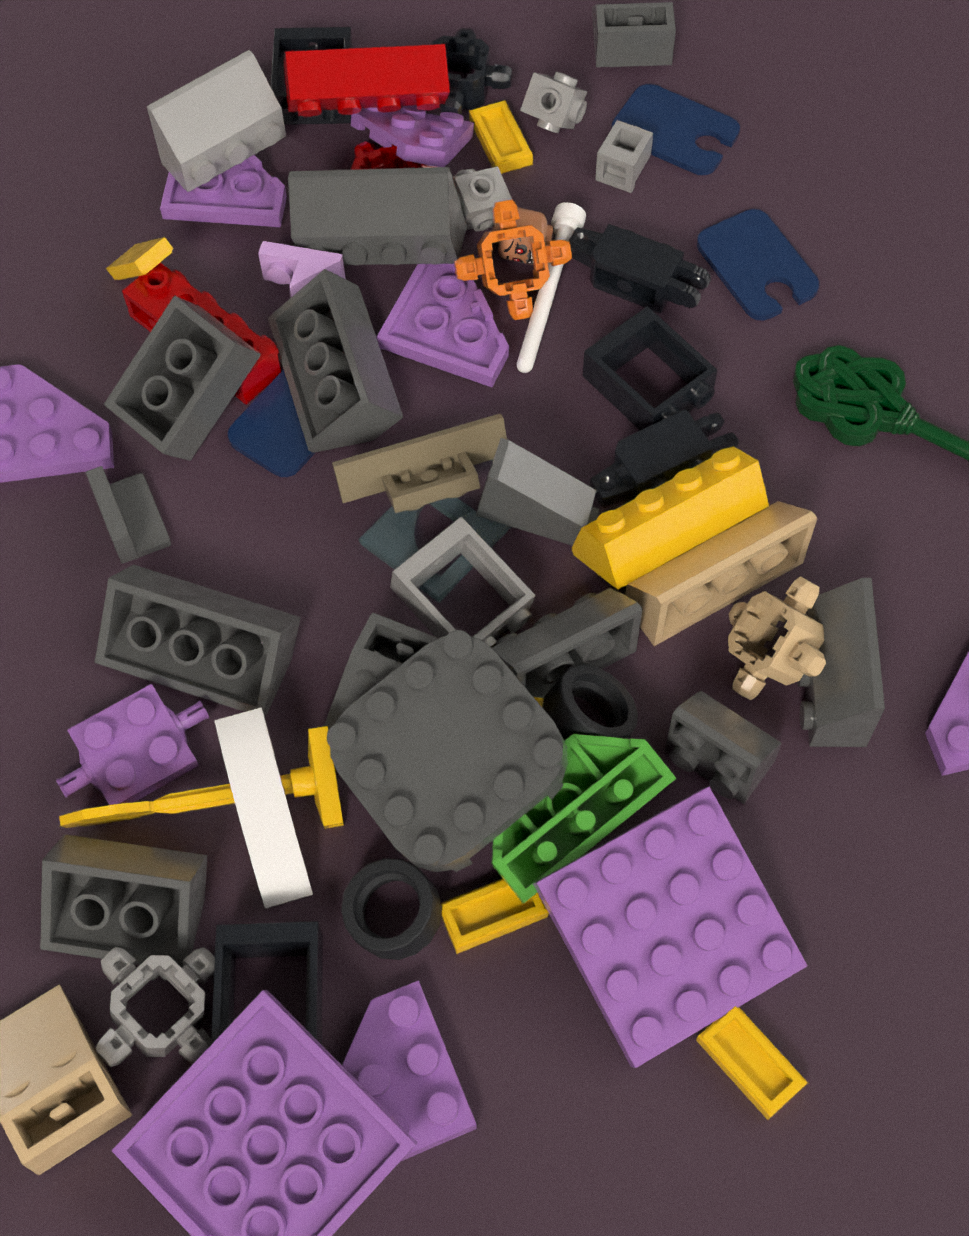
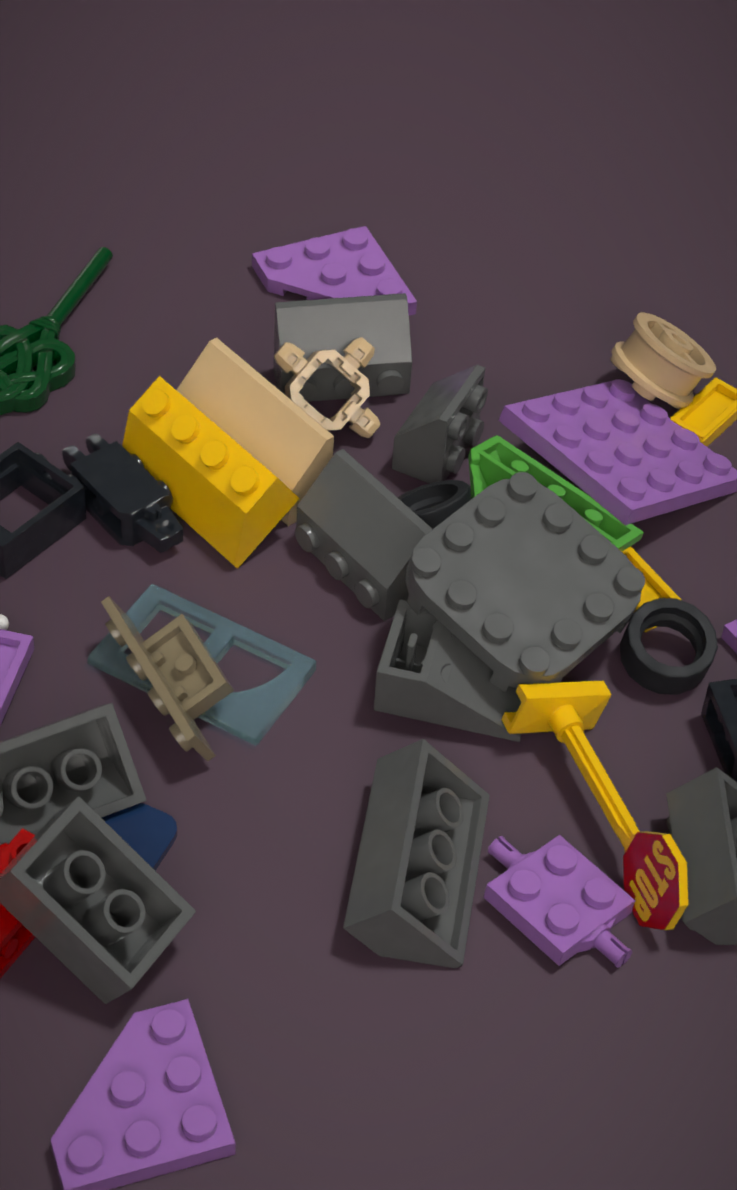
camera: 105 degrees left, 15 degrees down
(129, 514) = (264, 969): dark grey panel -> none
(263, 808) = (592, 745): white slope -> none
(464, 540) = (301, 656): light grey window -> none
(535, 495) = (198, 576): dark grey slope -> none
(808, 1003) = (662, 361): none -> tan wheel

